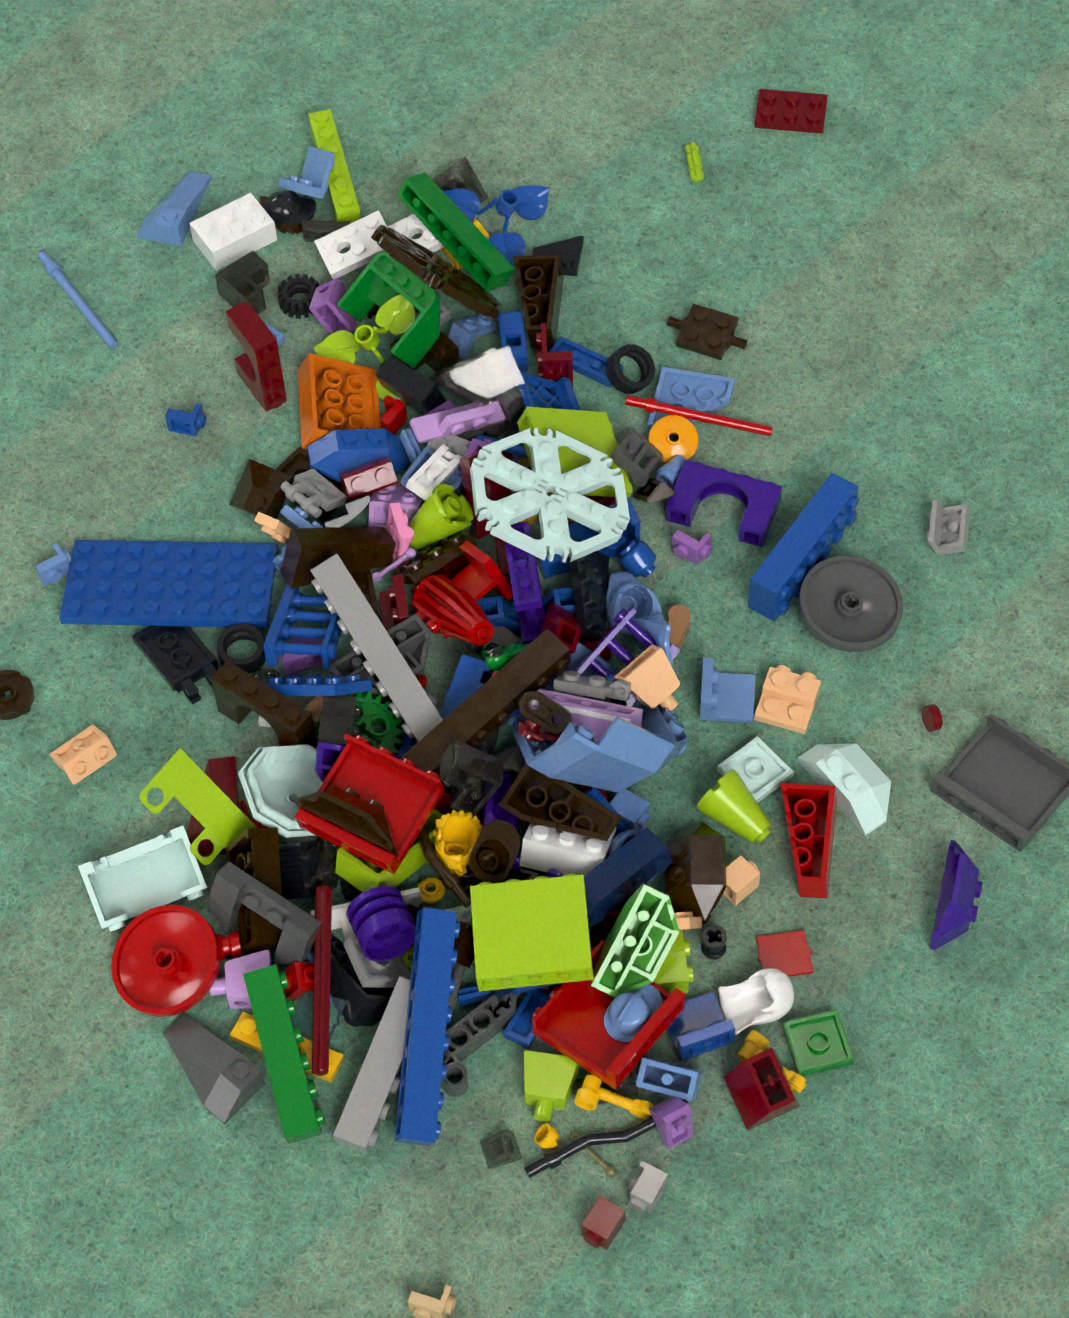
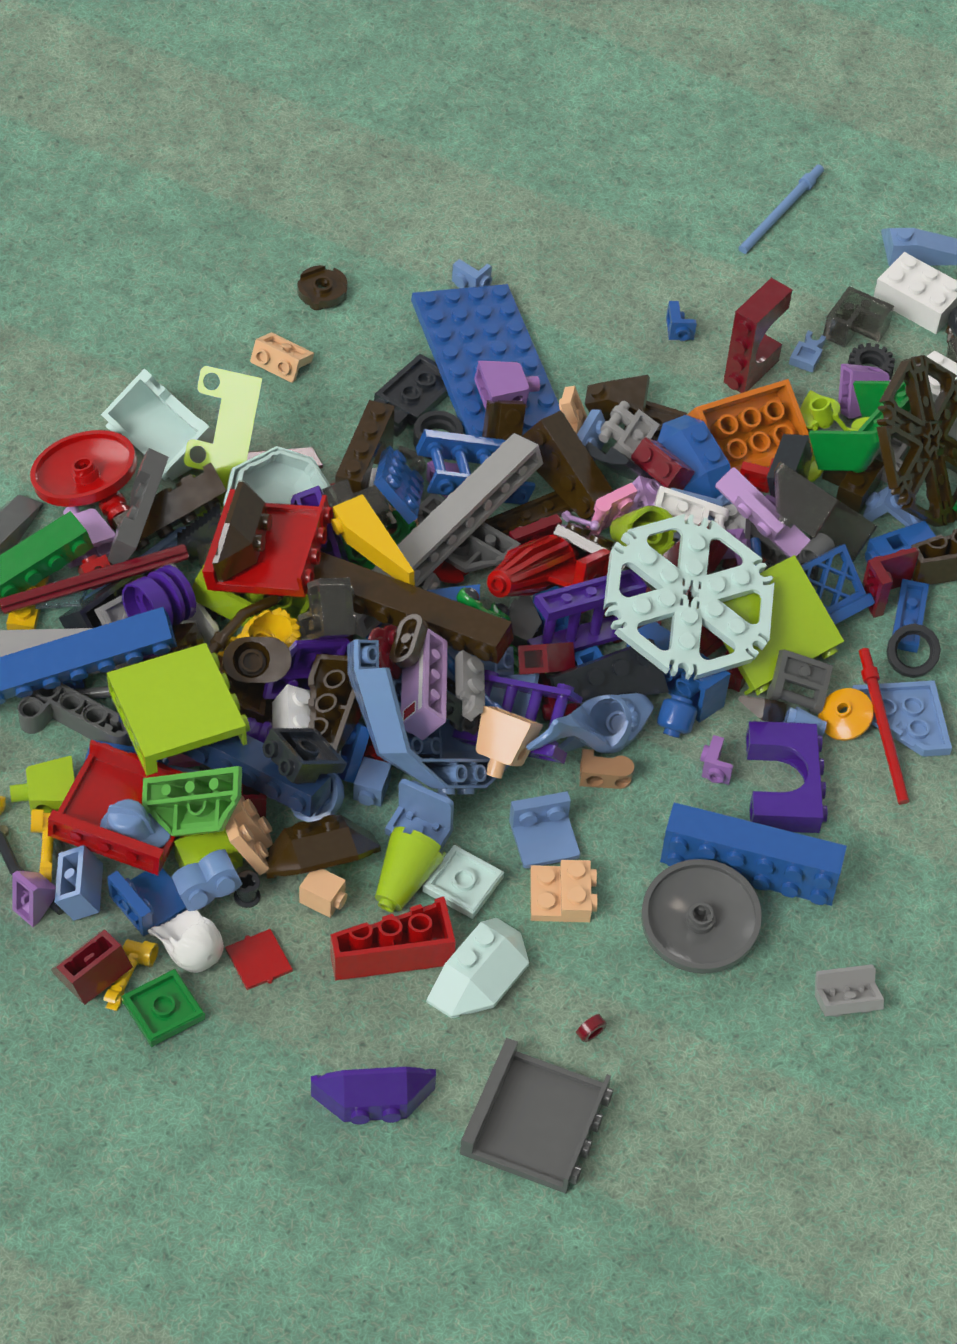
camera: 65 degrees right, 5 degrees down
(219, 573) = (504, 381): none -> medium lavender torso
(264, 587) = (503, 419): none -> dark brown plate
(393, 717) = (369, 537): none -> yellow wedge
(624, 839) = (302, 754): none -> black plate
(686, 781) = (423, 811): none -> medium blue bracket
(707, 966) = (204, 881): none -> medium blue brick

